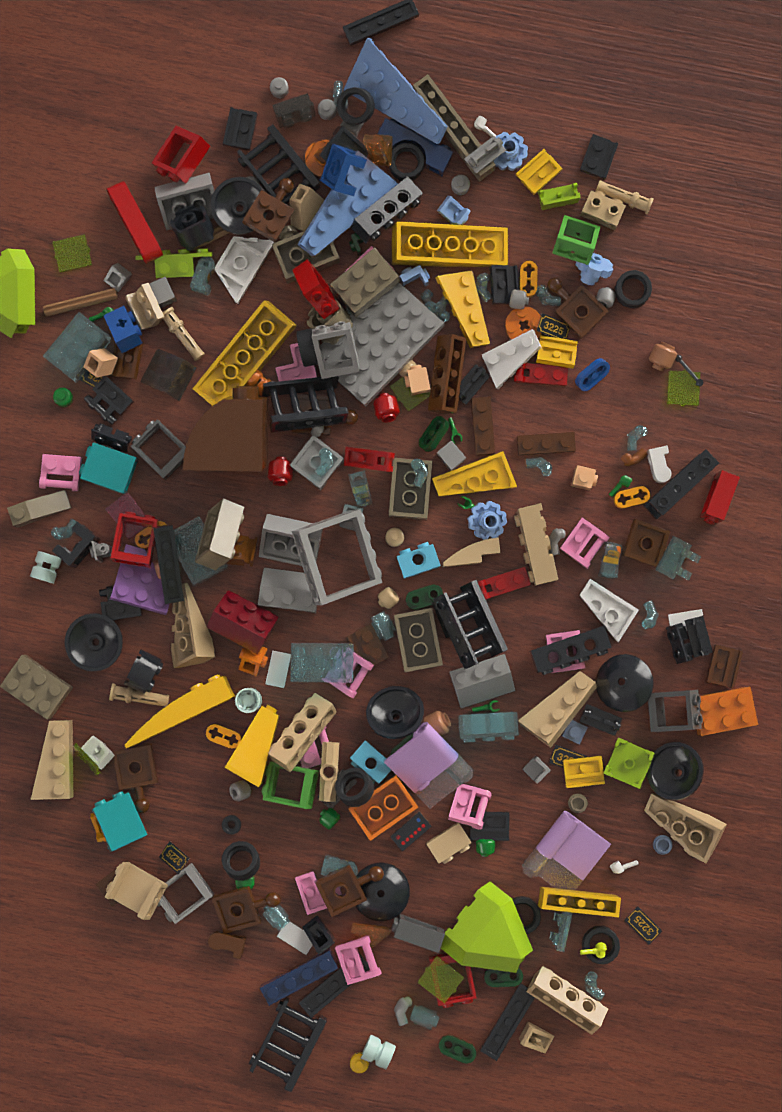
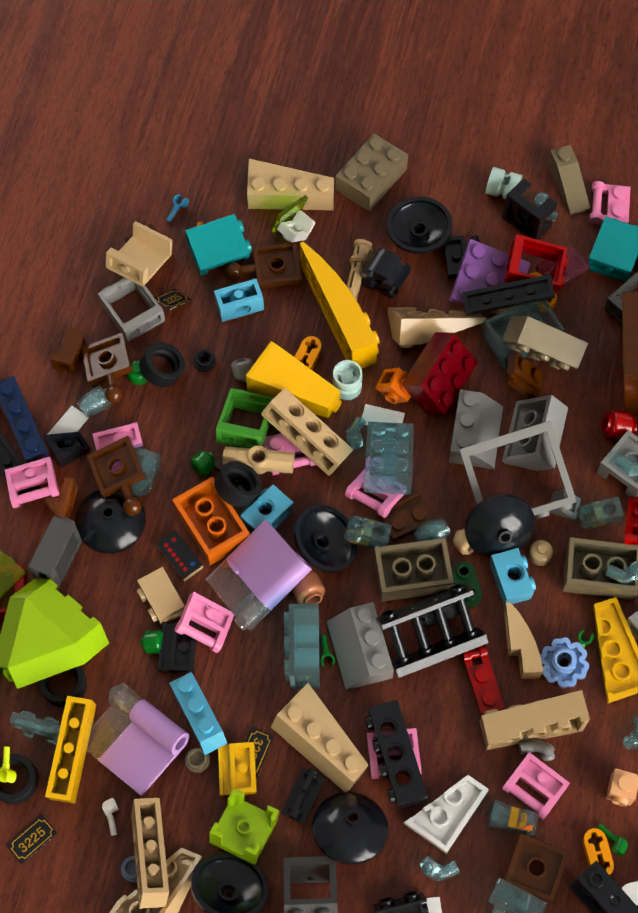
camera: 95 degrees right, 20 degrees down
(75, 861) = (177, 205): none -> dark azure hand
(100, 551) = (522, 226): light grey hinge -> none
(175, 798) = (239, 300): none -> medium azure brick
(295, 692) = (353, 433): none -> clear light blue arm
(380, 571) = (496, 517): none -> black dish
(387, 677) = (367, 532): none -> clear light blue leg
(536, 769) = (244, 709): light grey panel -> none
(545, 805) = (198, 713): none -> medium azure arch
(575, 732) = (289, 761): sand blue plate -> none
(655, 833) = (149, 853): none -> tan brick

